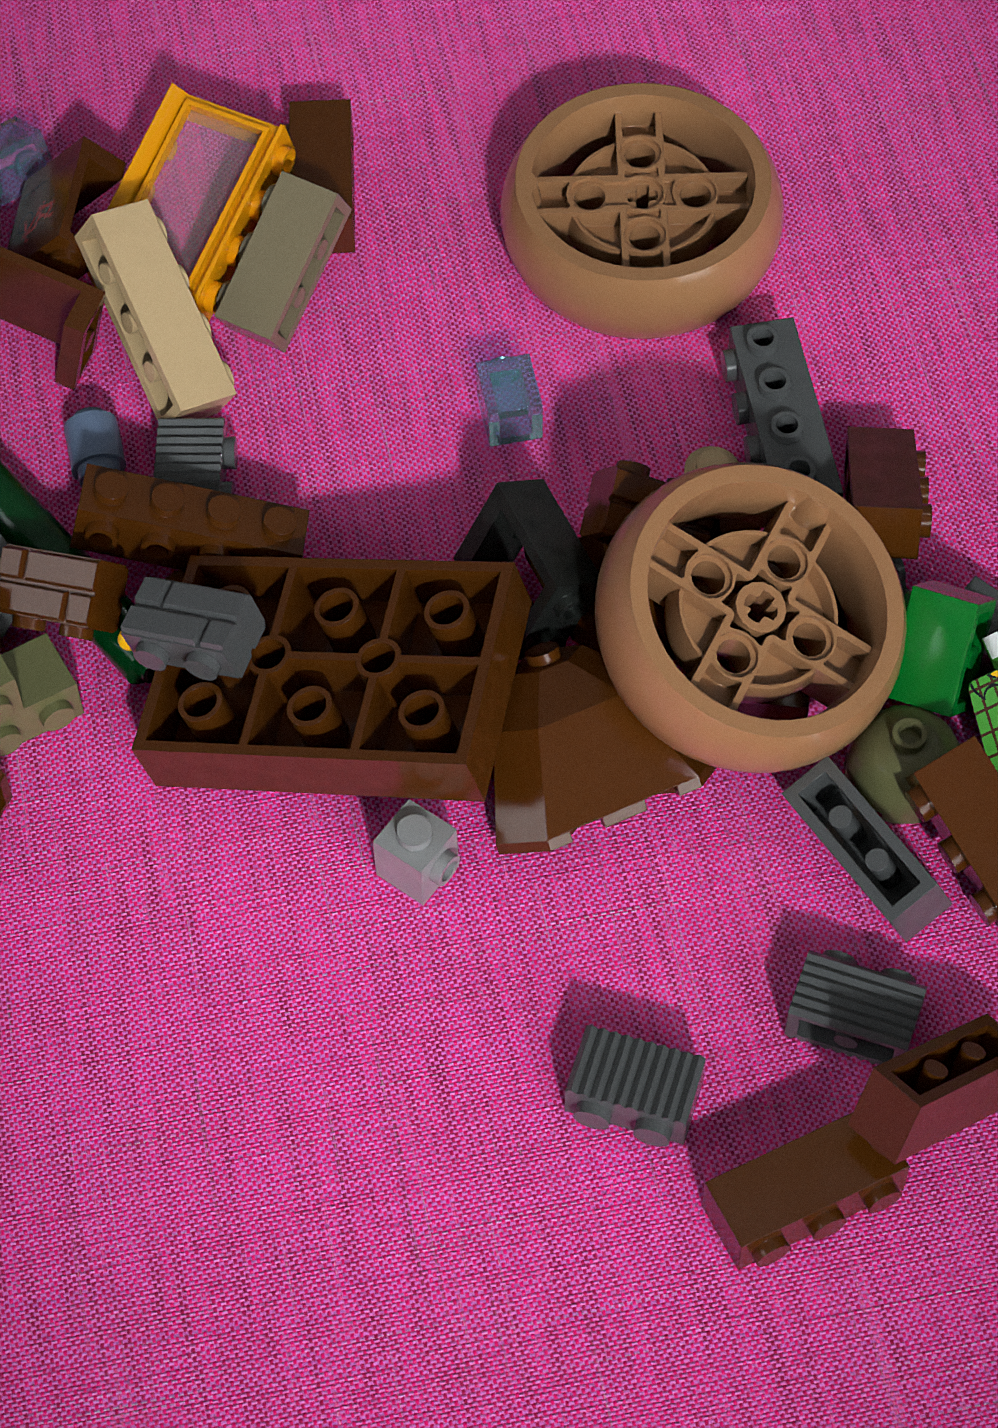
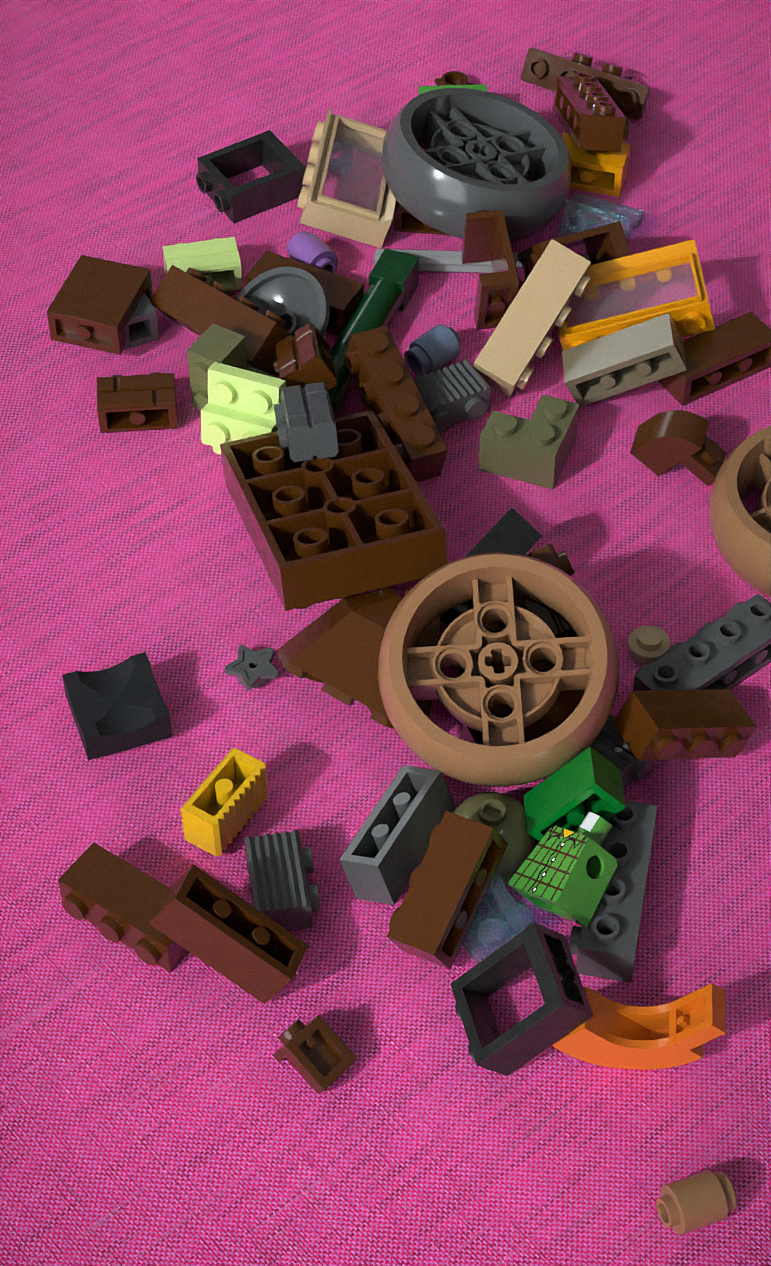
camera: 60 degrees right, 10 degrees down
(83, 699) = (238, 405): none -> yellowish green plate
(340, 424) = (530, 448): none -> olive brick
(416, 852) = (249, 612): light grey brick -> none
(438, 283) = (675, 439): none -> reddish brown brick
(479, 1069) = (117, 707): none -> black brick
(500, 905) = (255, 676): none -> dark grey plate
(509, 400) = (619, 517): clear light blue brick -> none
(634, 1086) = (152, 789): dark grey brick -> none
(714, 1009) = (224, 802): none -> yellow brick

